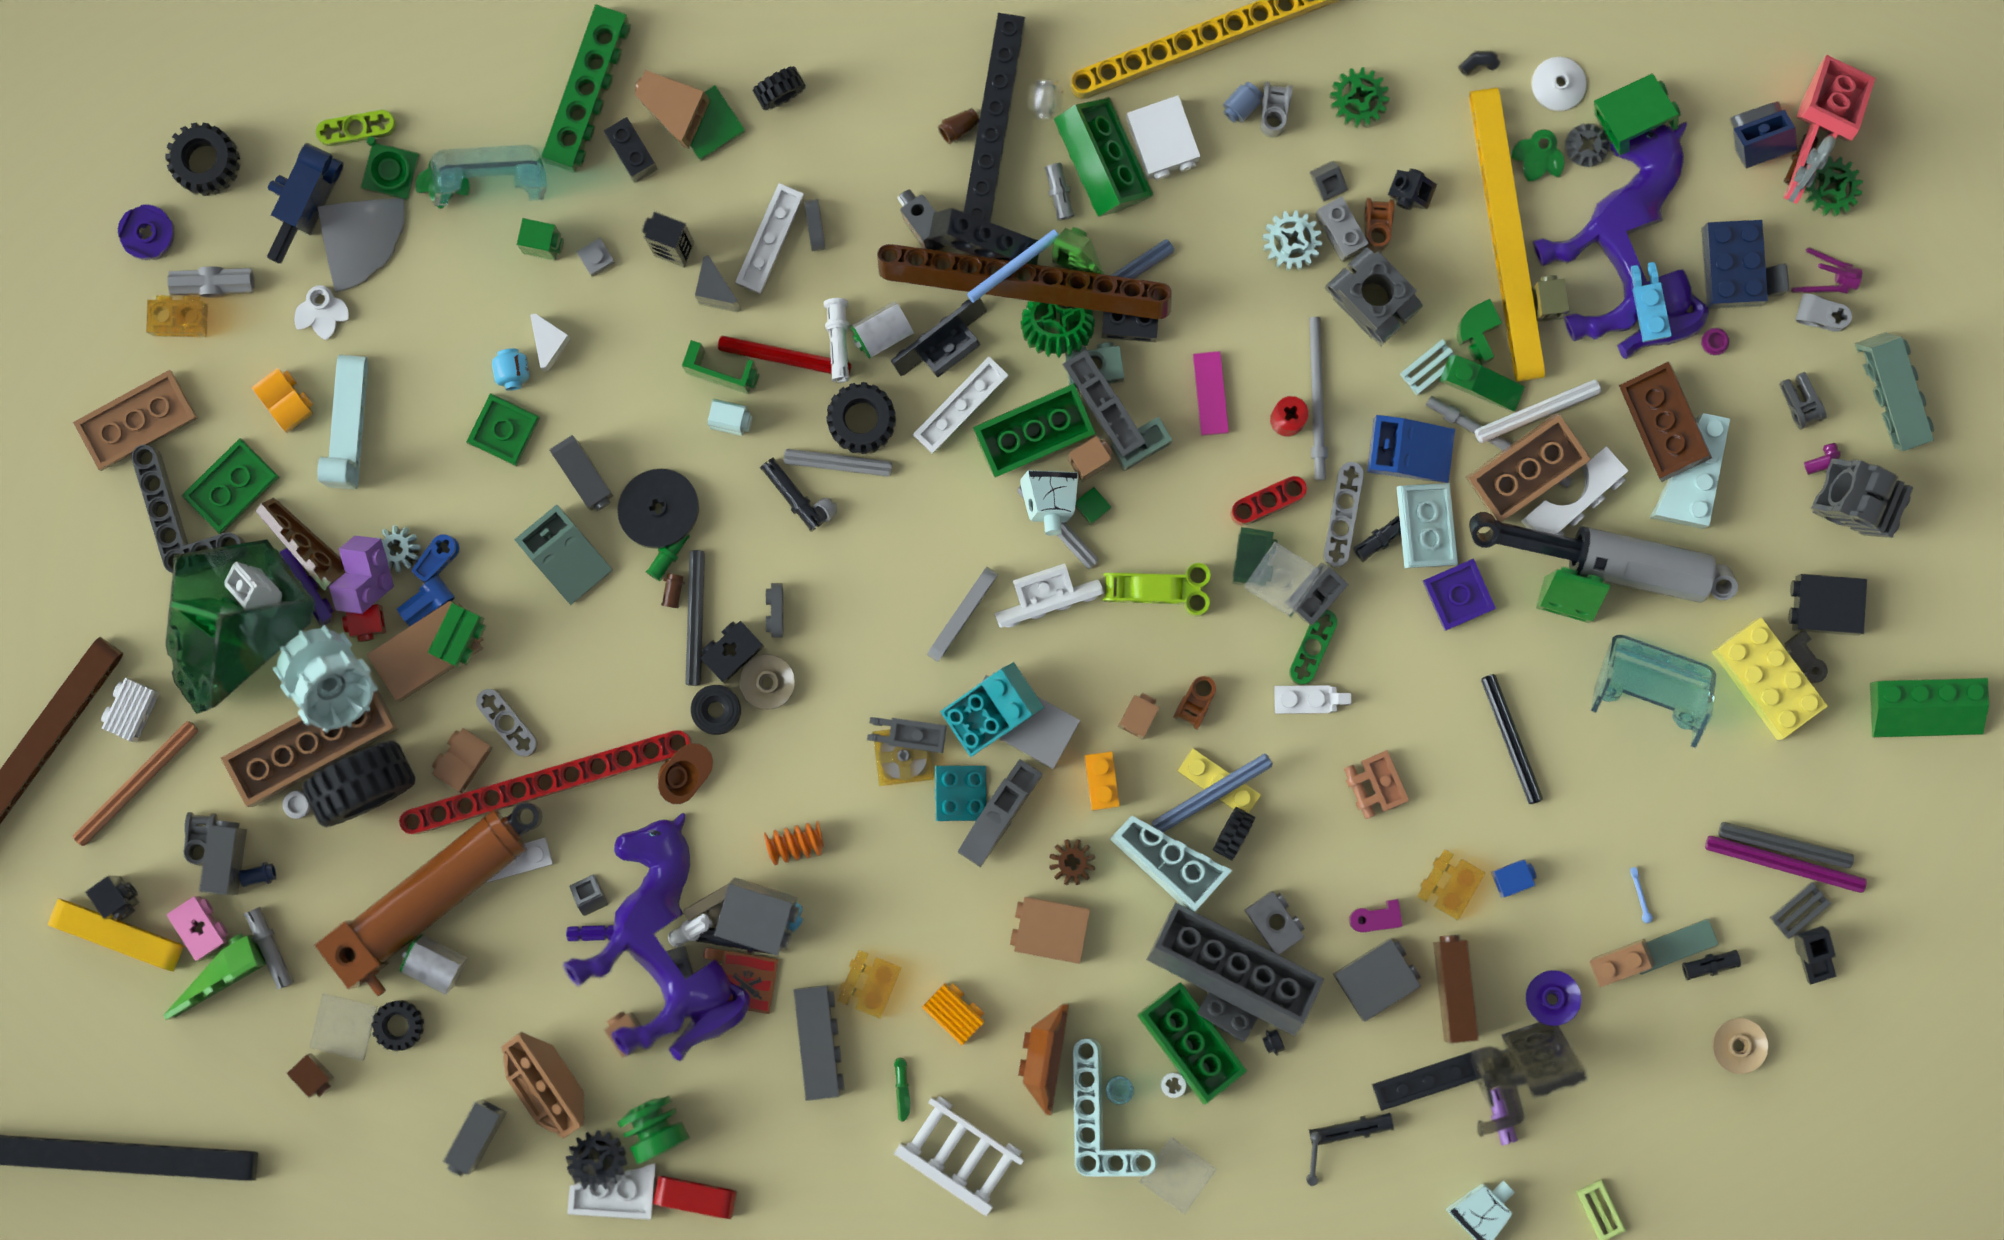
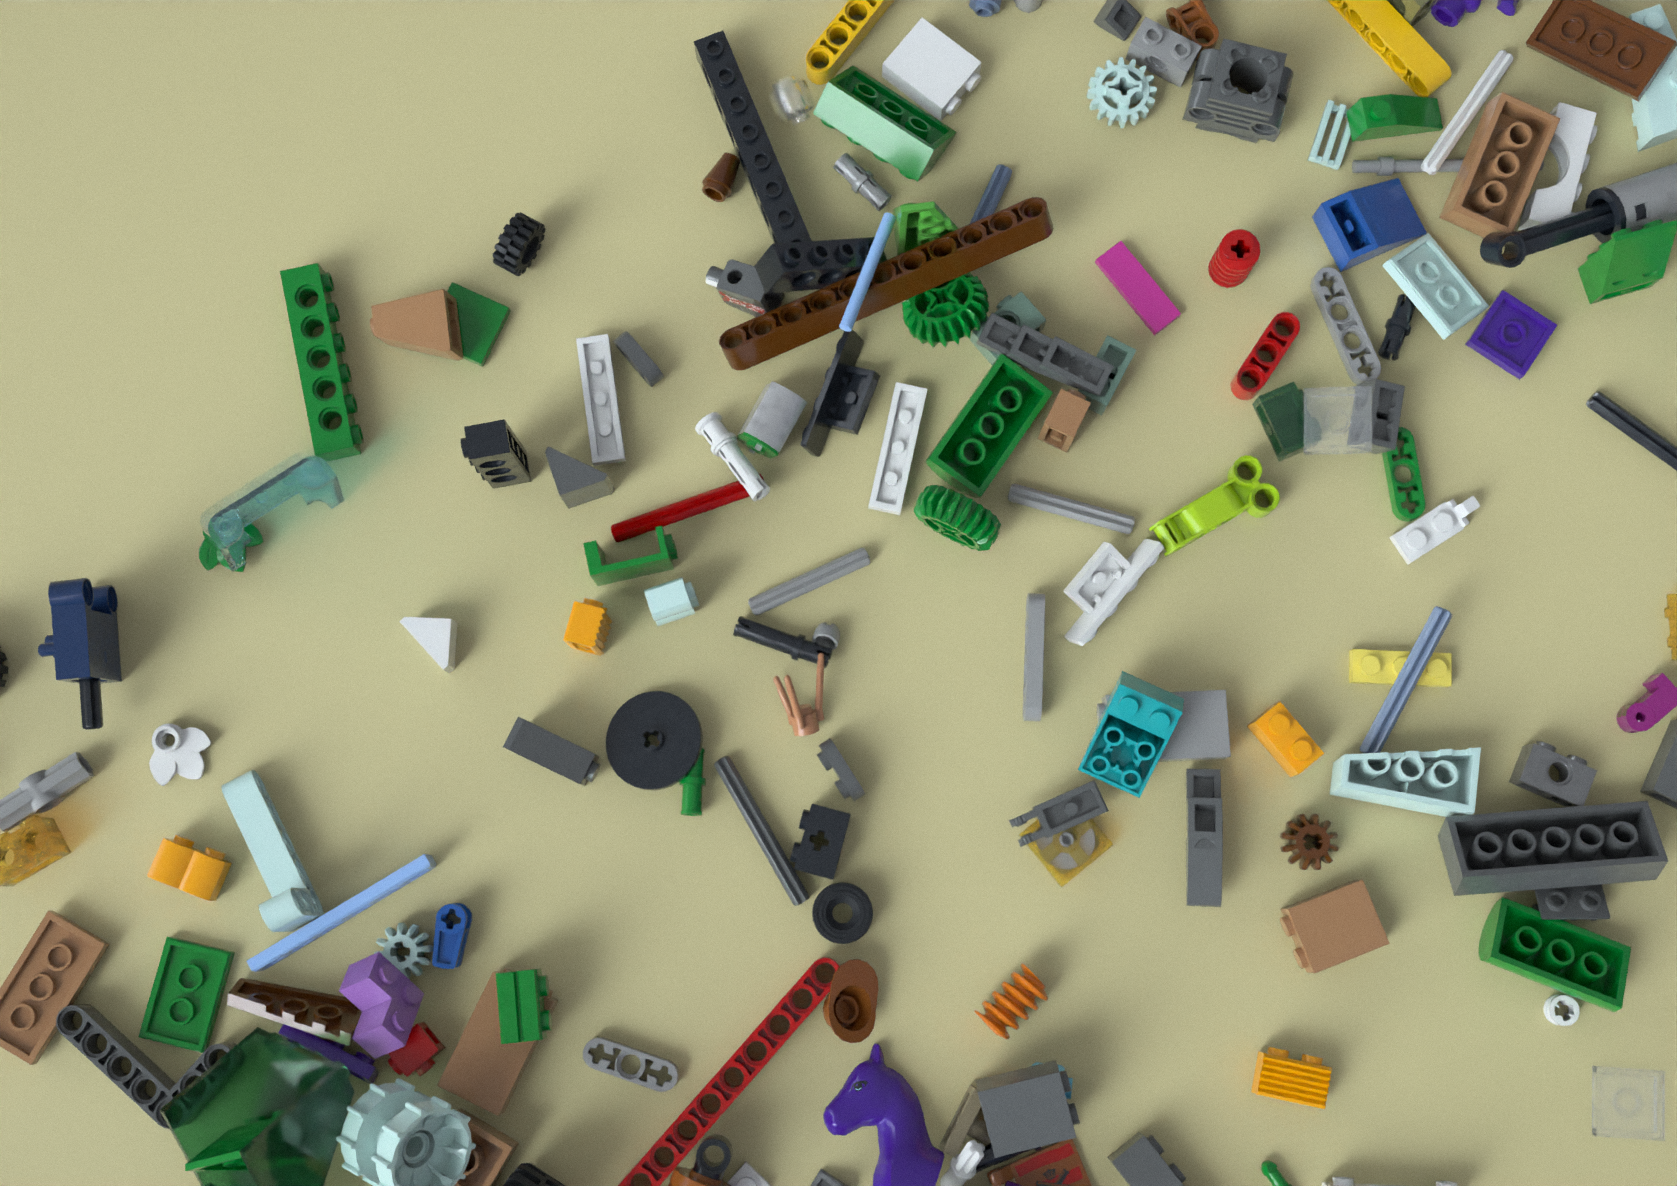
camera: 30 degrees left, 5 degrees down
(251, 586) = (268, 1090): white brick -> none
(337, 139) = (117, 520): lime beam -> none
(360, 238) = (173, 651): light grey brick -> none
(369, 496) = (342, 913): none -> light blue tile
(389, 170) = (166, 565): green hat -> none
(428, 599) = (469, 983): blue piece -> none
(461, 760) = (606, 1135): medium nougat brick -> none
(503, 429) = (442, 758): green tile -> none
(510, 369) = (412, 690): medium azure head -> none
(539, 239) = (363, 538): green brick -> none
(563, 554) = (583, 849): sand green slope -> none
(595, 257) = (433, 524): light grey plate -> none
(630, 149) = (404, 394): black brick -> none
(660, 400) = (588, 627): none -> light orange brick
(672, 590) = (720, 816): reddish brown pin -> none
(752, 682) = (885, 833): dark tan dish -> none
(772, 556) = (803, 717): none -> nougat plant
(861, 394) = (801, 494): black tyre -> none
(877, 987) = (1194, 1103): clear yellow plate -> none
(960, 792) = (1148, 842): teal hinge -> none
(968, 482) = (957, 517): none -> green gear
(1044, 1056) = (1413, 1065): dark orange wedge -> none
(1050, 497) = (1049, 483): light aqua torso -> none
(1092, 505) = (1093, 469): green slope -> none
(1095, 1121) = (1508, 1102): light aqua beam -> none
(1119, 1089) = (1504, 1050): clear light blue wheel -> none
(1129, 327) = (1016, 270): black brick -> none
(1139, 715) = (1282, 648): medium nougat brick -> none
(1195, 703) = (1326, 601): dark orange piece -> none
(1234, 833) = (1455, 709): black tyre -> none
(1273, 1042) = (1633, 899): black plate -> none
(1319, 451) = (1280, 278): light grey bar -> none
(1384, 781) = (1563, 563): nougat plate -> none
(1474, 325) = (1351, 69): green brick -> none

